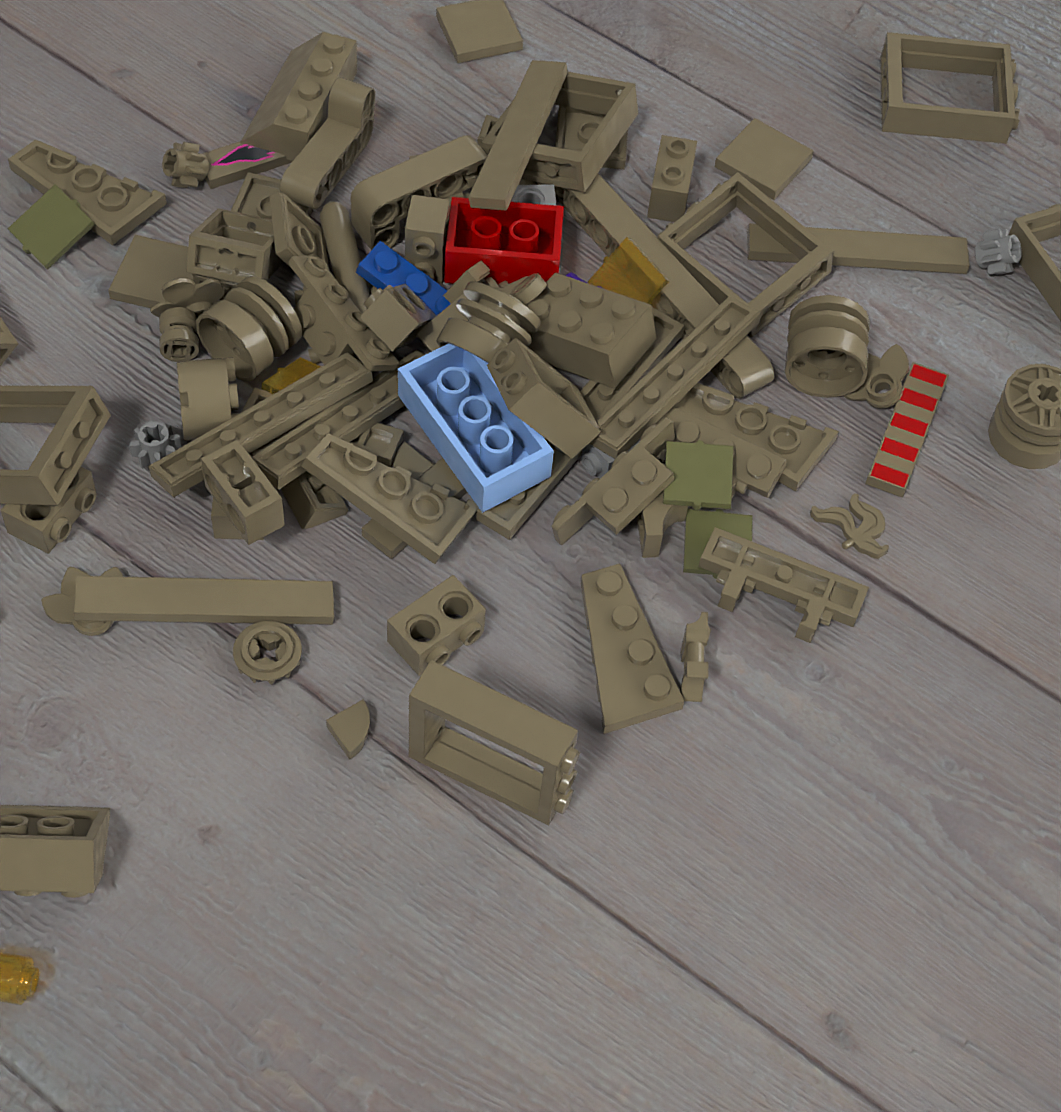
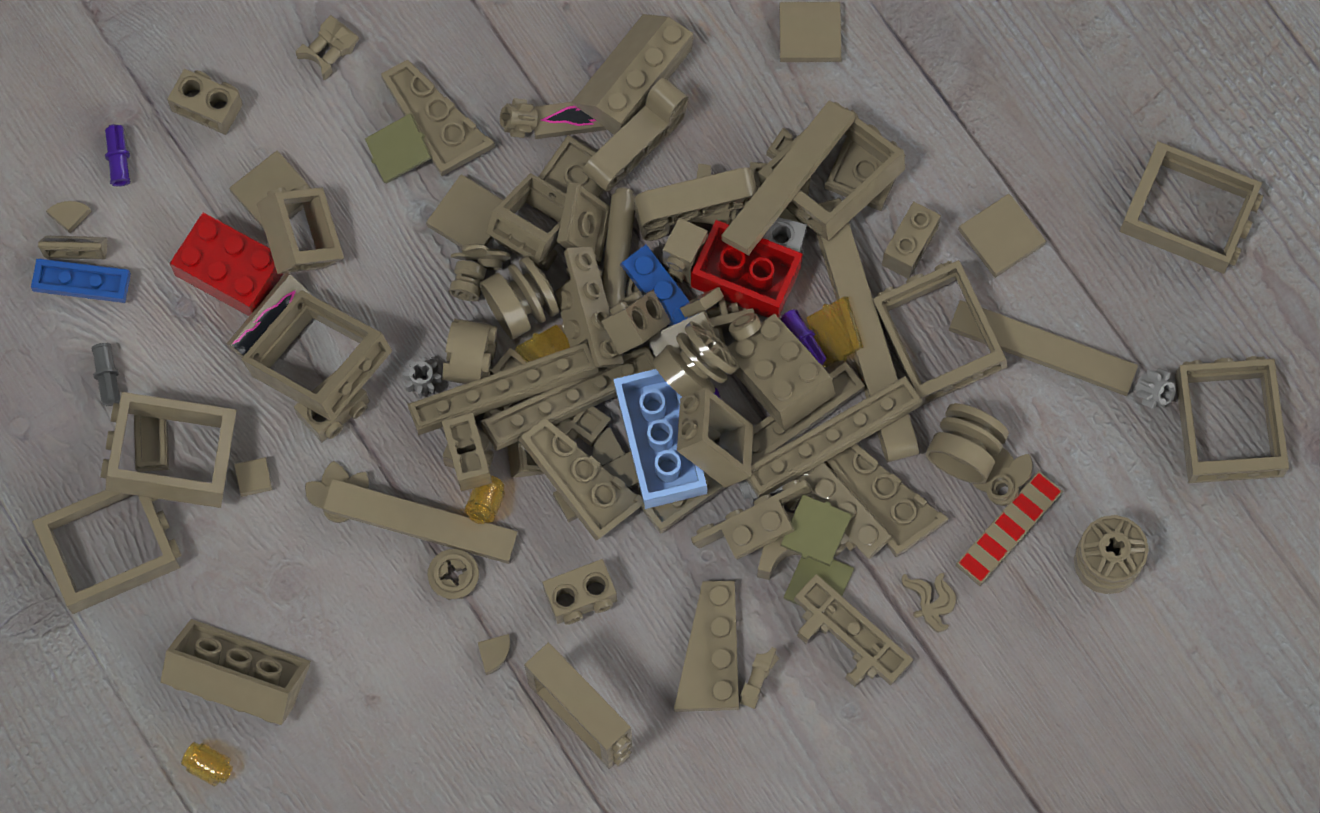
camera: 25 degrees right, 15 degrees up
(280, 555) = (485, 501): none -> clear yellow brick

